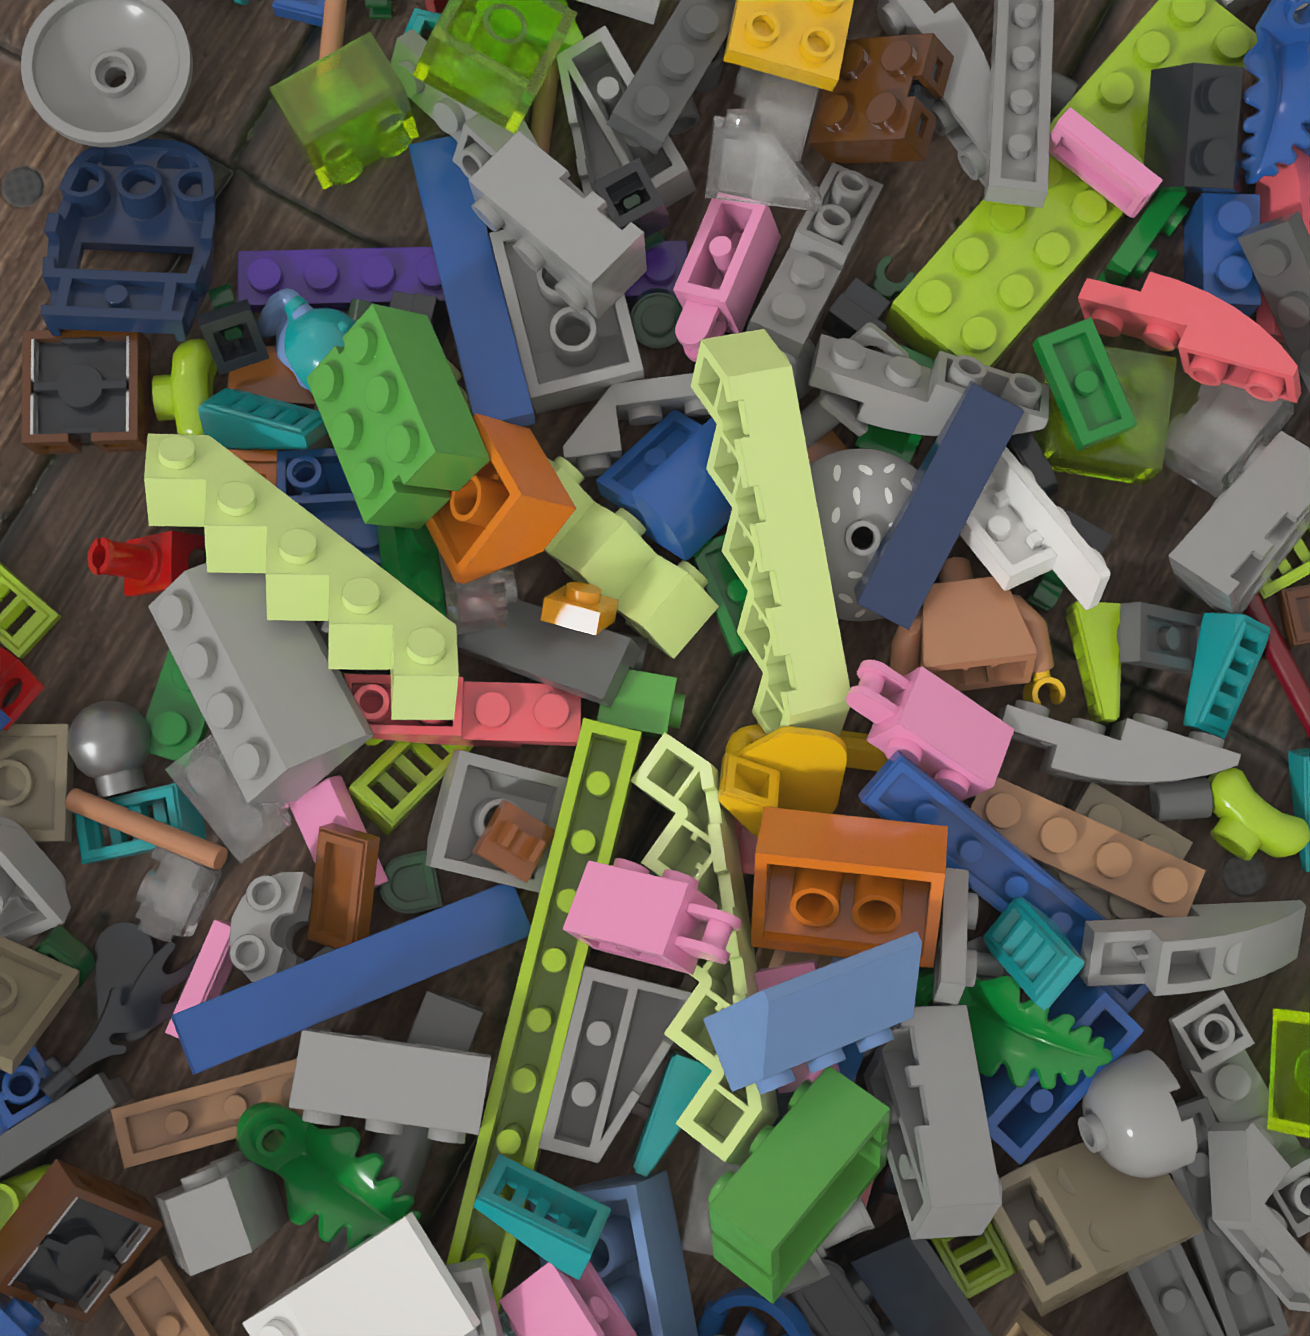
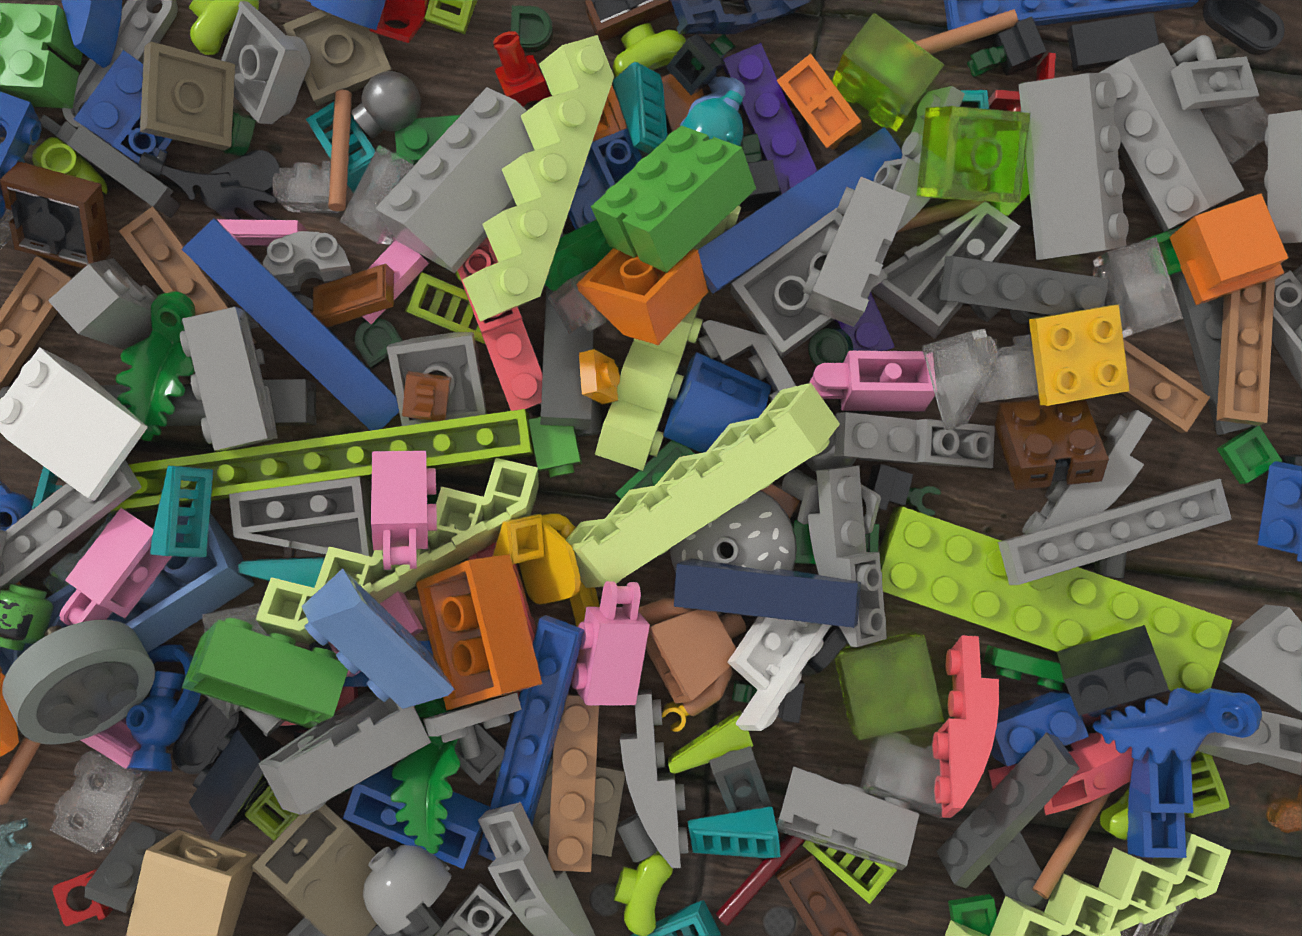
camera: 70 degrees right, 5 degrees up
(88, 521) = (532, 26): none -> dark green tile
(345, 206) = (820, 102): none -> orange hinge
(634, 200) = (895, 298): black piece -> none
(1033, 951) = (483, 774): teal slope -> none
(1084, 384) = (893, 662): green plate -> none
(1102, 163) = (1060, 615): bright pink tile -> none

